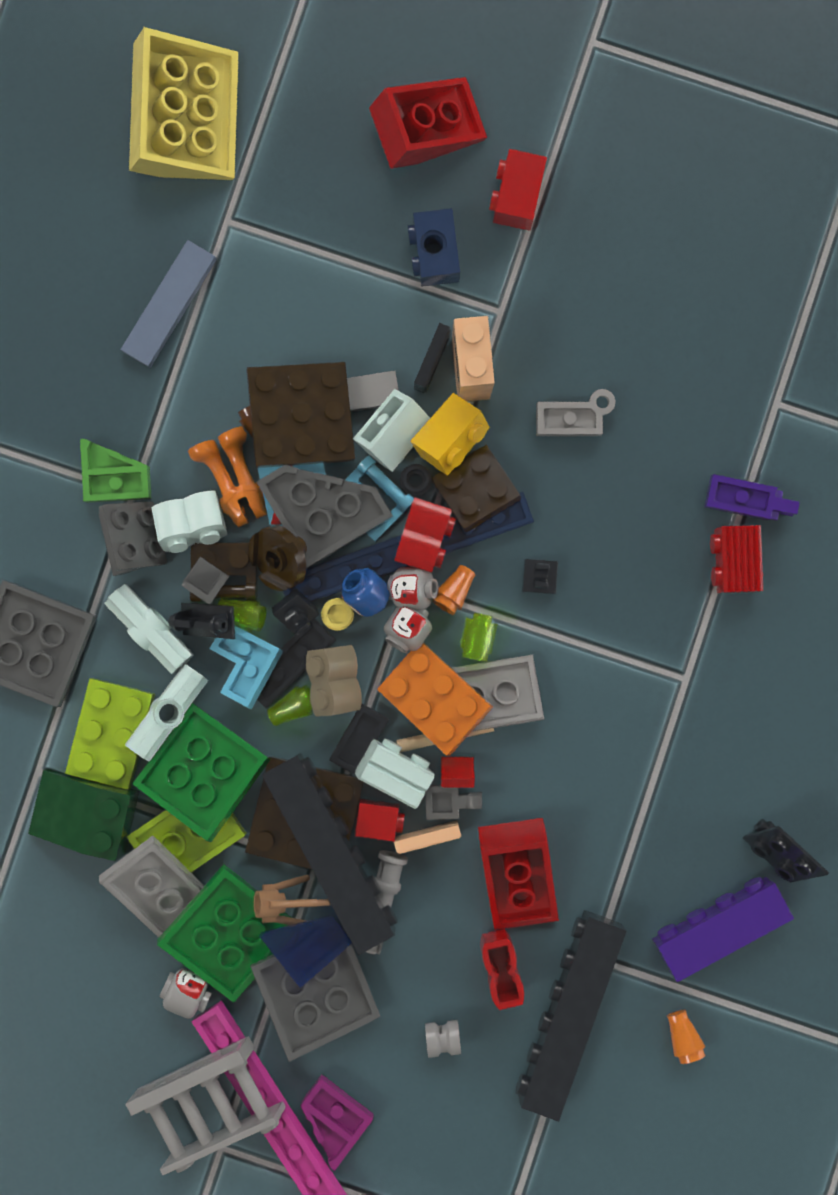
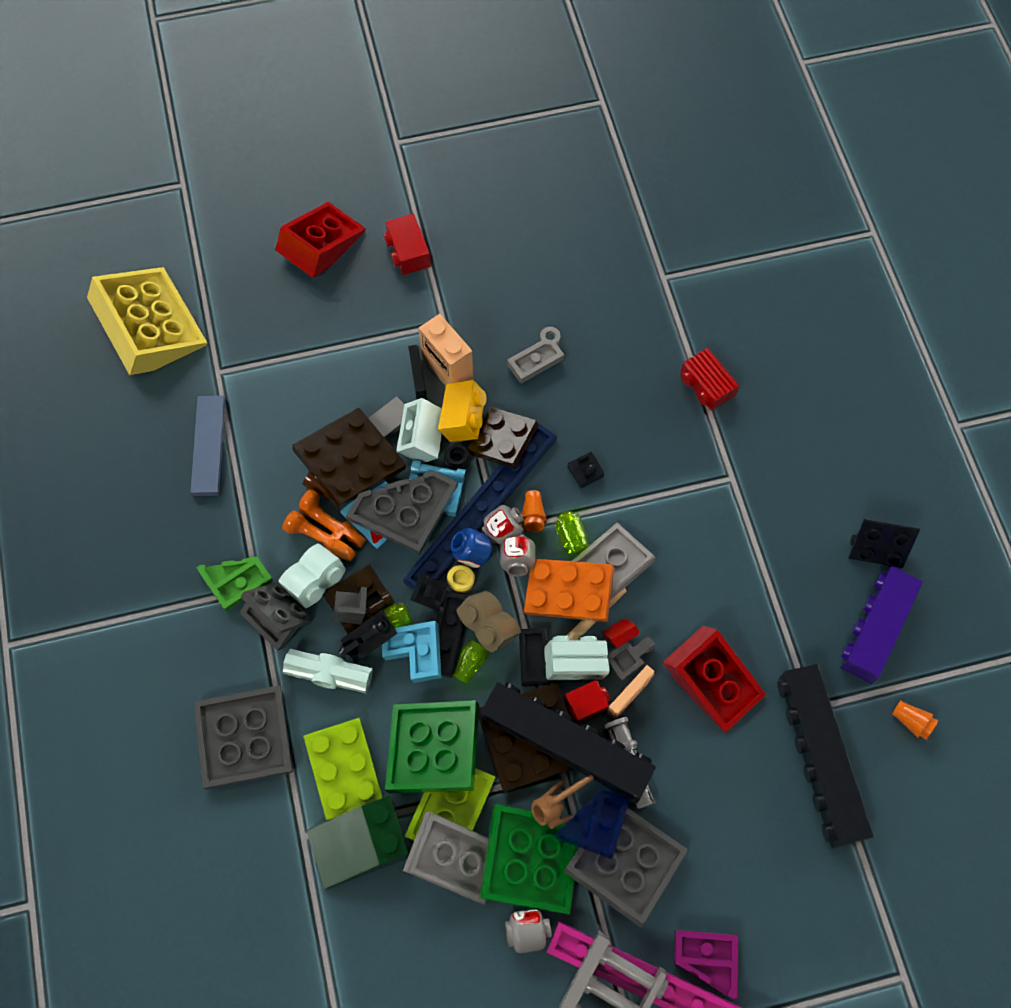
camera: 30 degrees left, 20 degrees down
(154, 731) = (376, 736): light aqua piece -> none
(291, 565) = (404, 548): dark brown plate -> none
(424, 534) = (487, 483): red brick -> none
(437, 228) = (371, 294): dark blue brick -> none
(442, 1038) = (746, 836): light grey wheel -> none
(501, 964) = (757, 756): red brick -> none
(748, 498) = (688, 340): dark purple hinge -> none

